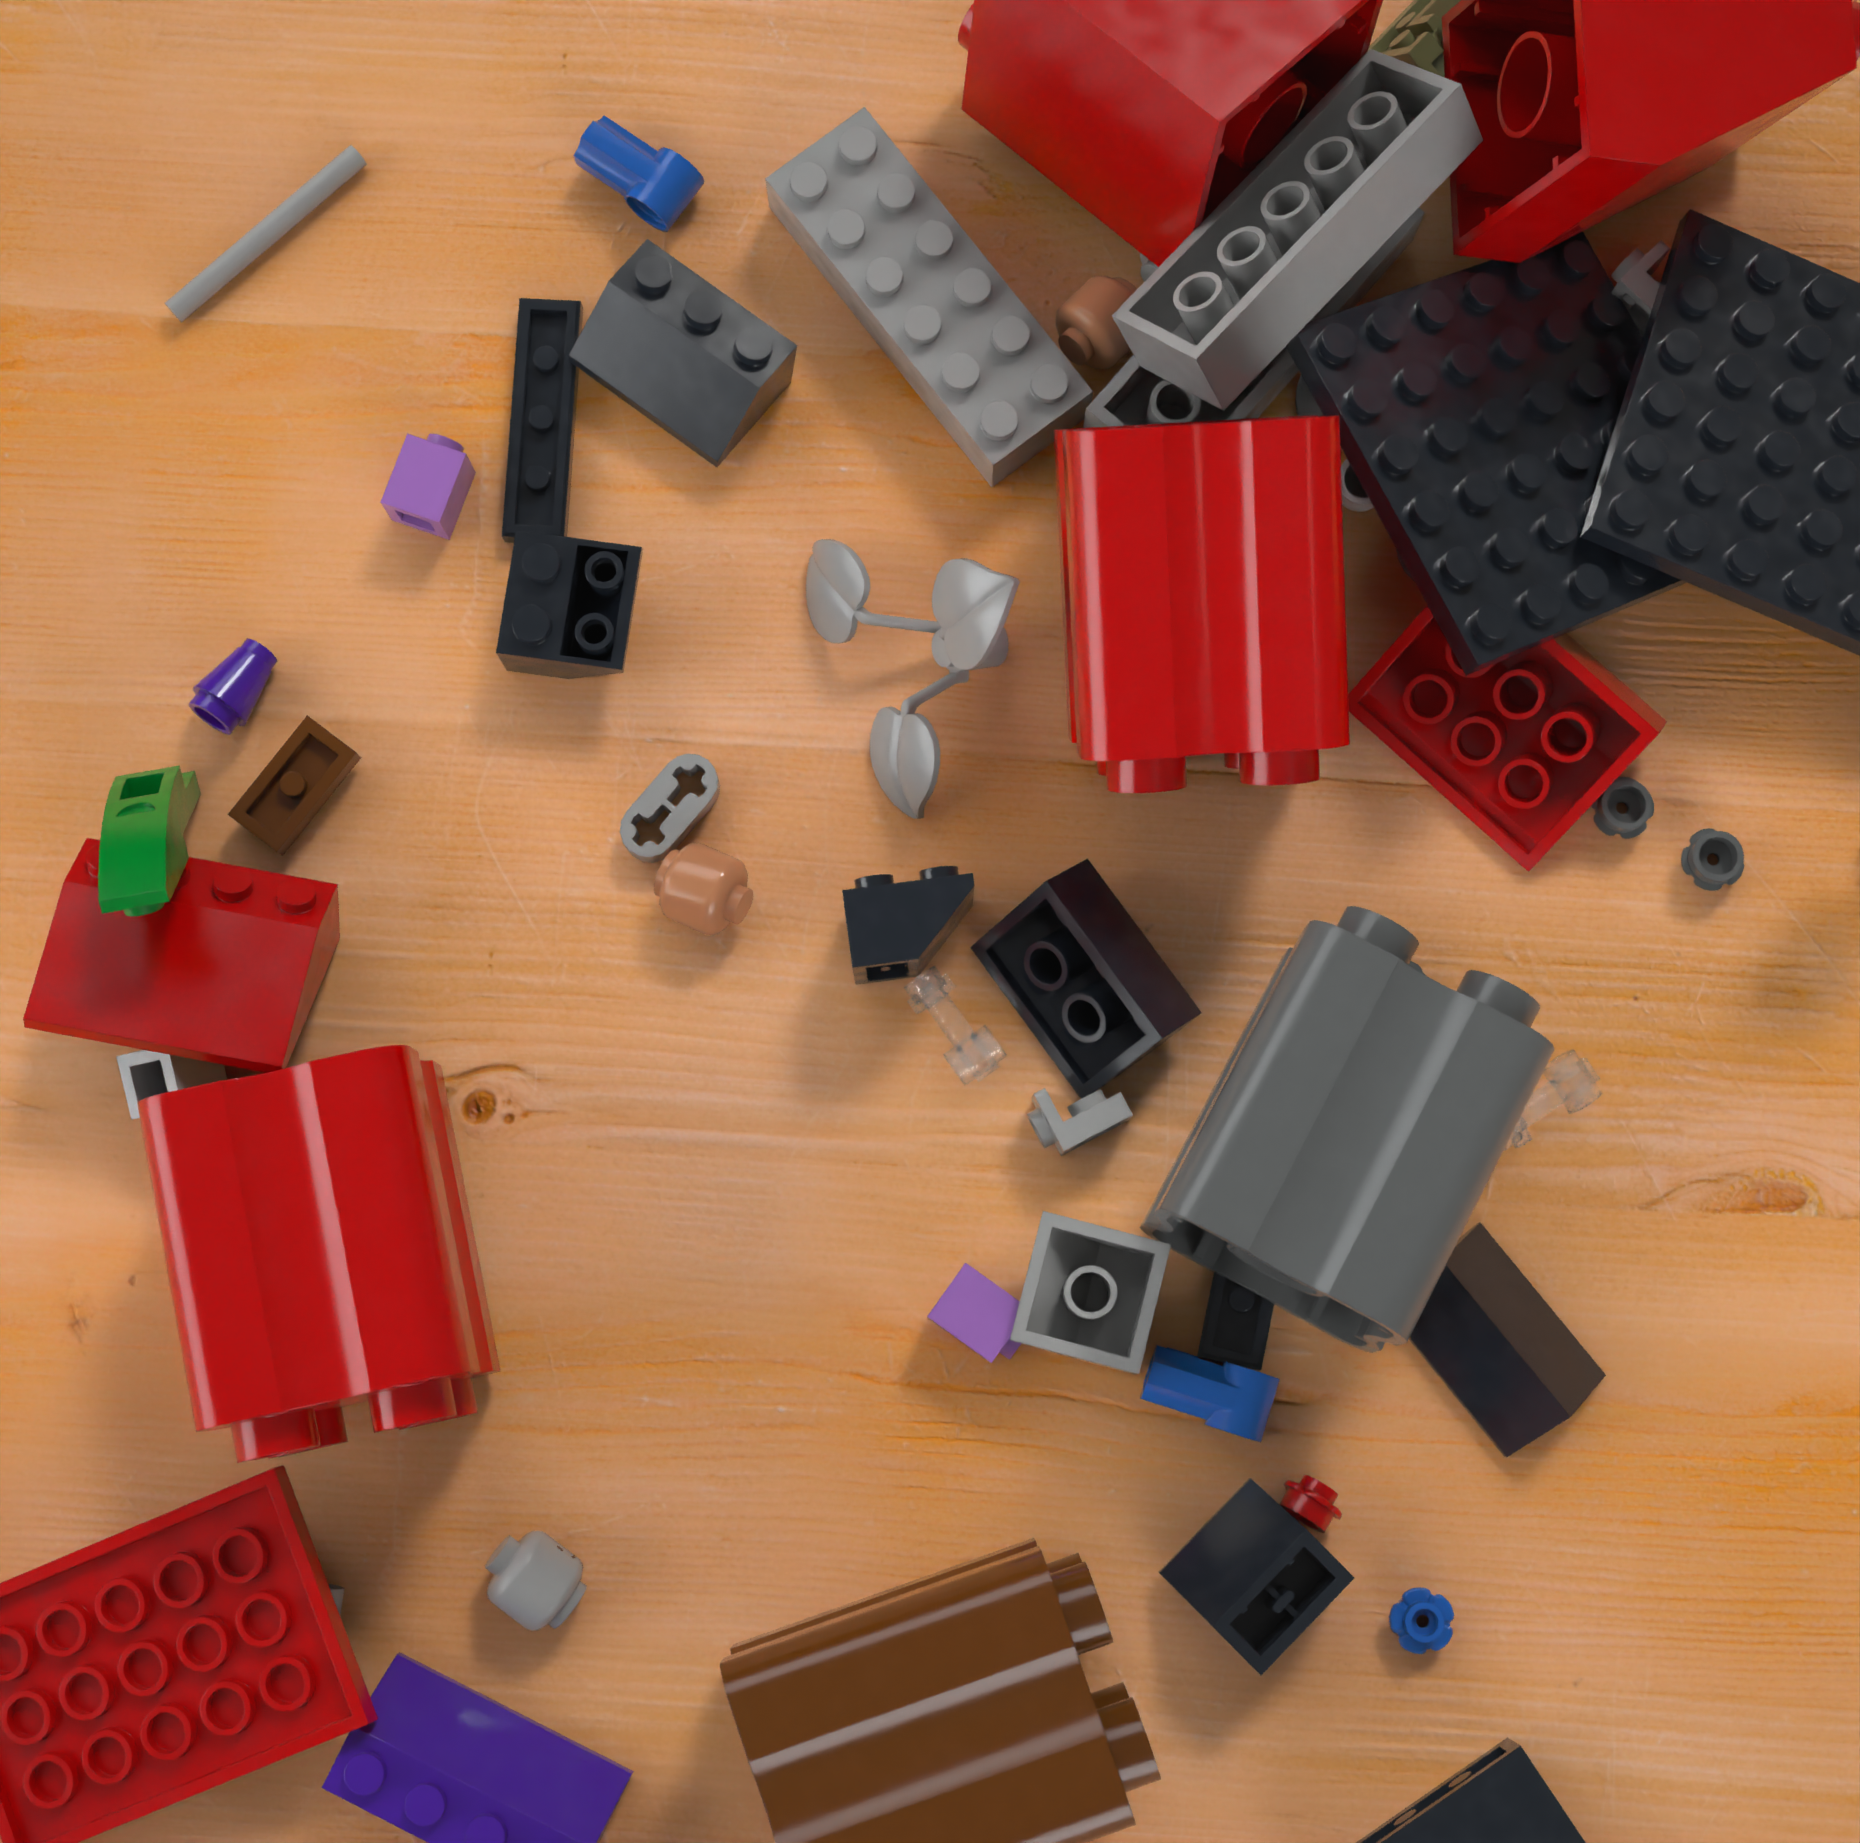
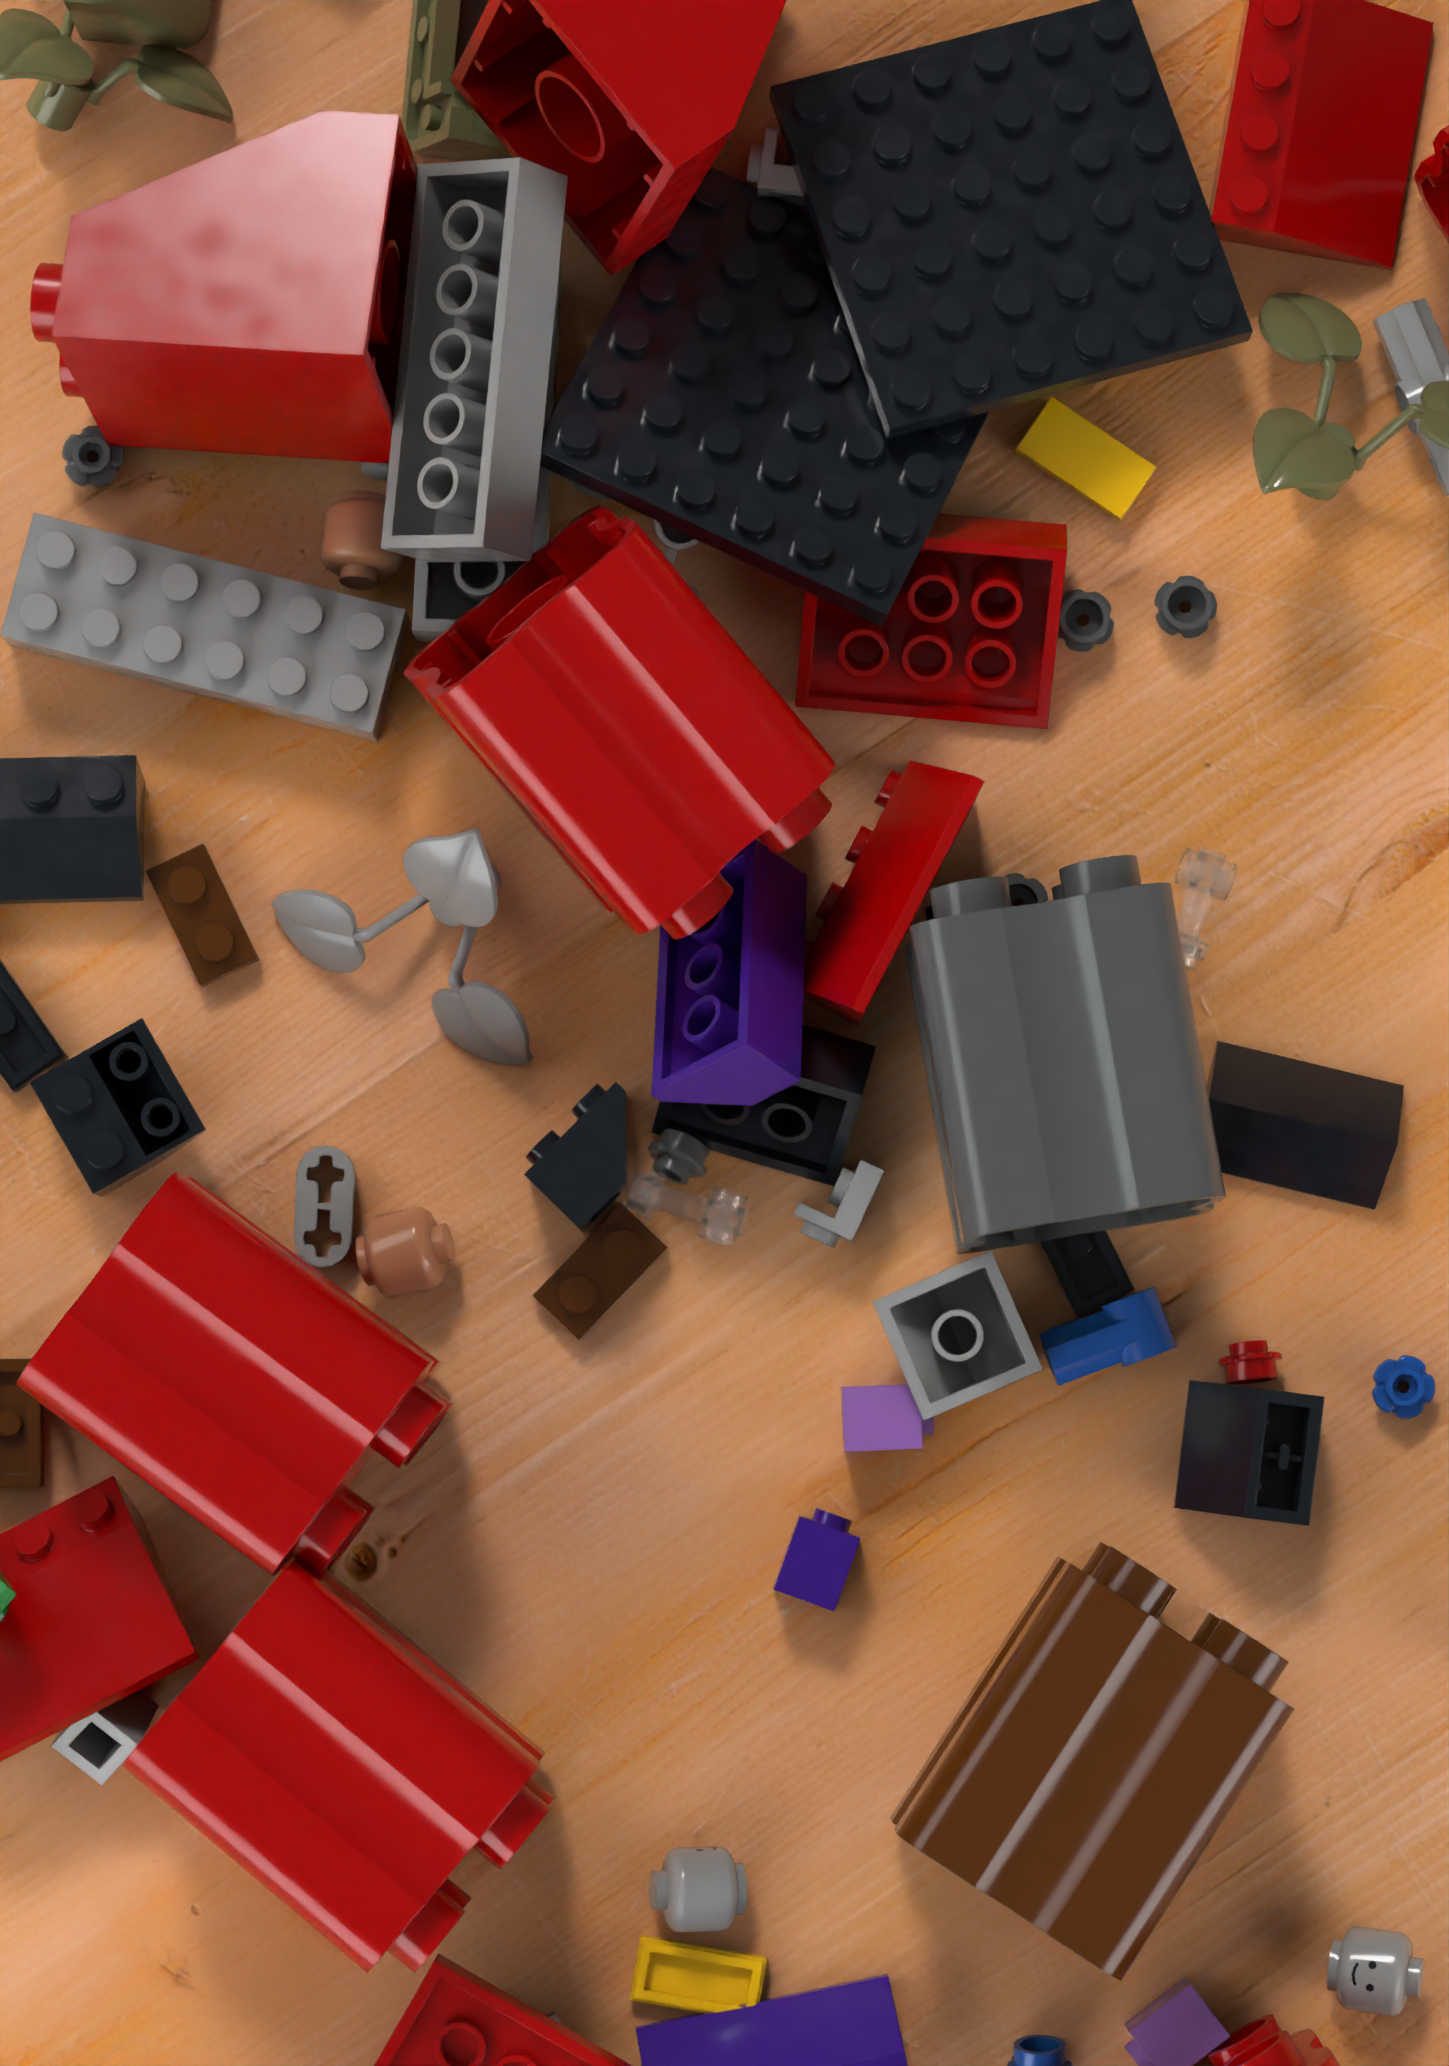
camera: 40 degrees left, 5 degrees up
(479, 1649) = (695, 1976): none -> yellow tile
(484, 873) = (236, 1379): none -> red brick
(753, 515) = (202, 915): none -> reddish brown plate
(838, 1387) = (817, 1559): none -> dark purple brick
(844, 1024) = (600, 1271): none -> reddish brown plate
(937, 127) = (82, 471): none -> dark grey plate
(977, 980) = (678, 1156): none -> dark grey plate
(1125, 874) = (735, 991): none -> dark purple slope
(1272, 905) = (886, 885): none -> red slope
(1718, 685) = (1085, 459): none -> yellow tile

